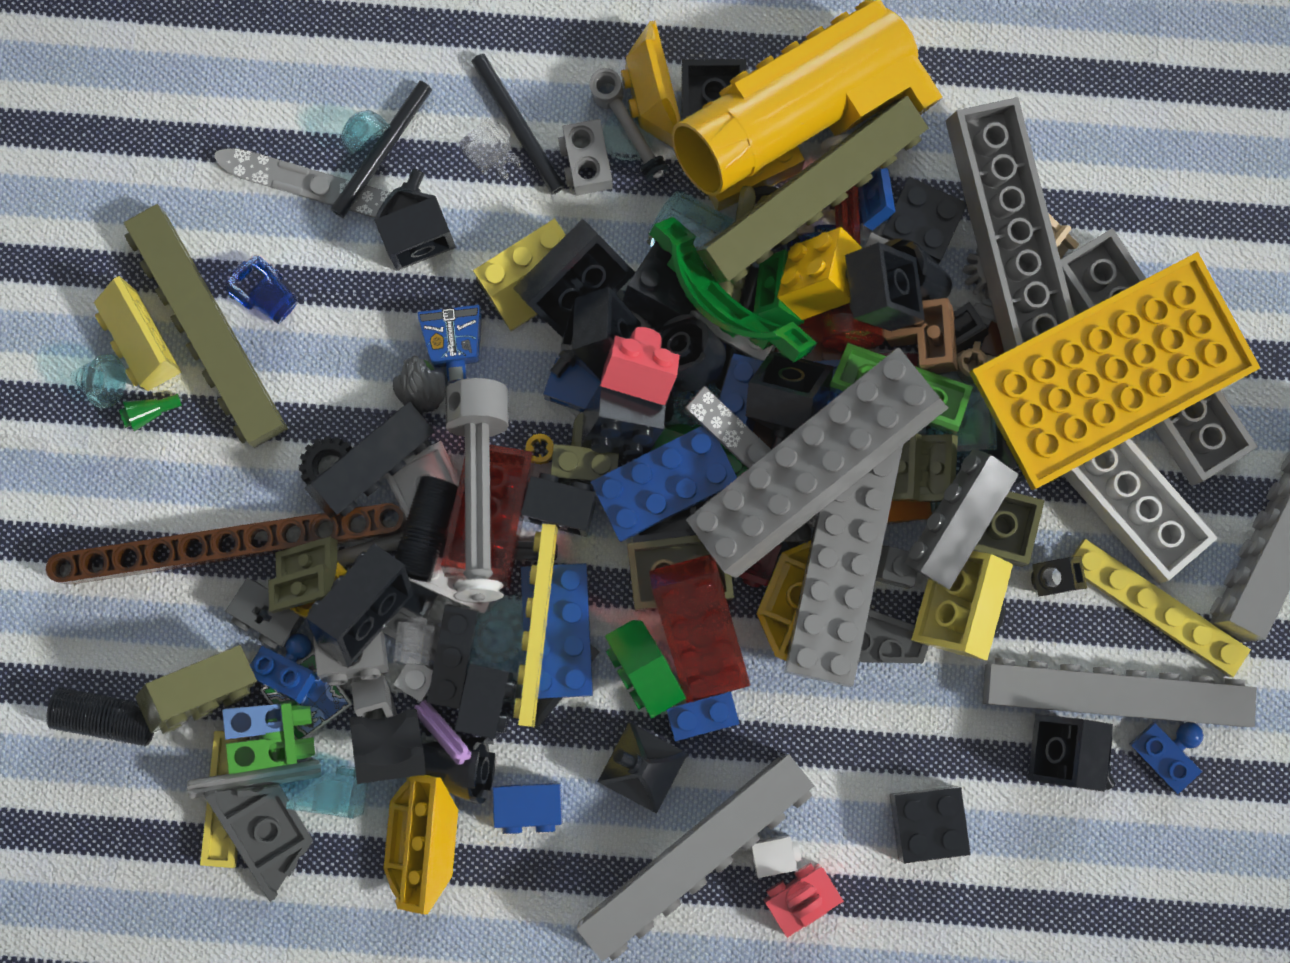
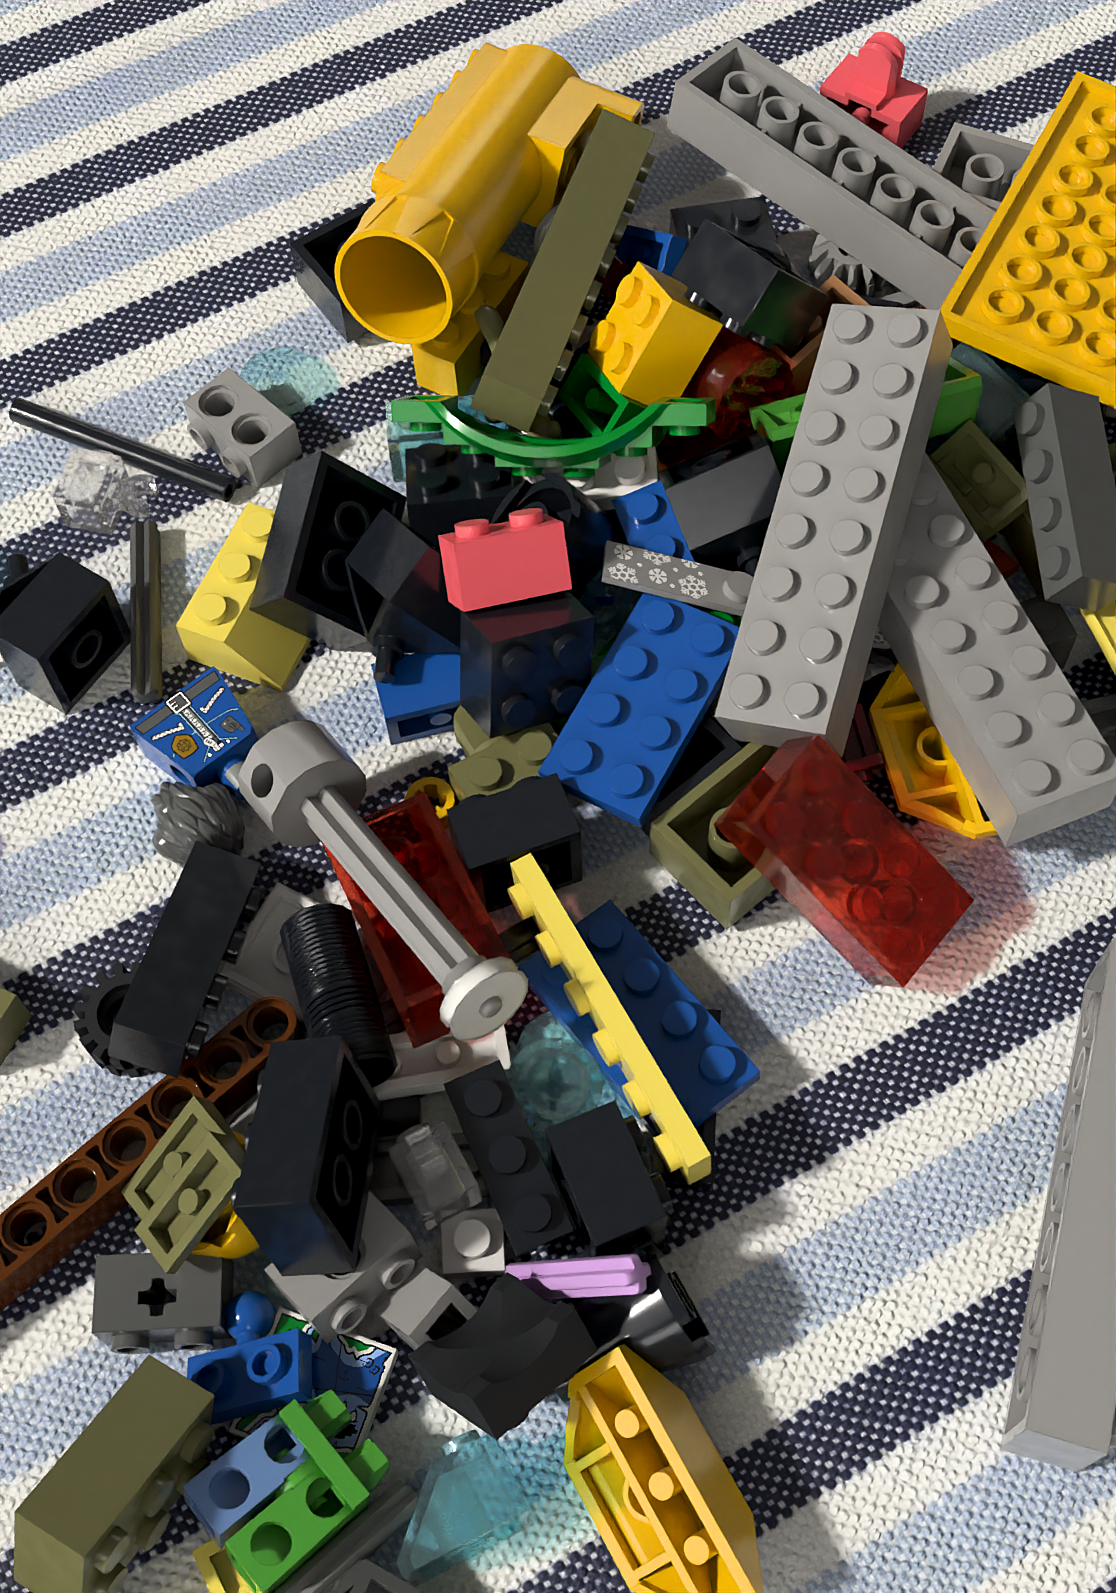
camera: 30 degrees left, 20 degrees down
(470, 237) = (145, 612): none -> dark grey axle
(527, 806) = (787, 1313): blue brick -> none
(642, 767) = (913, 1129): black piece -> none
(643, 668) = (808, 970): green hinge -> none
(651, 86) = (280, 306): yellow wedge -> none
(653, 166) = (218, 348): light grey piece -> none
(702, 716) = (937, 998): blue brick -> none
(1091, 168) = (874, 90): none -> coral brick

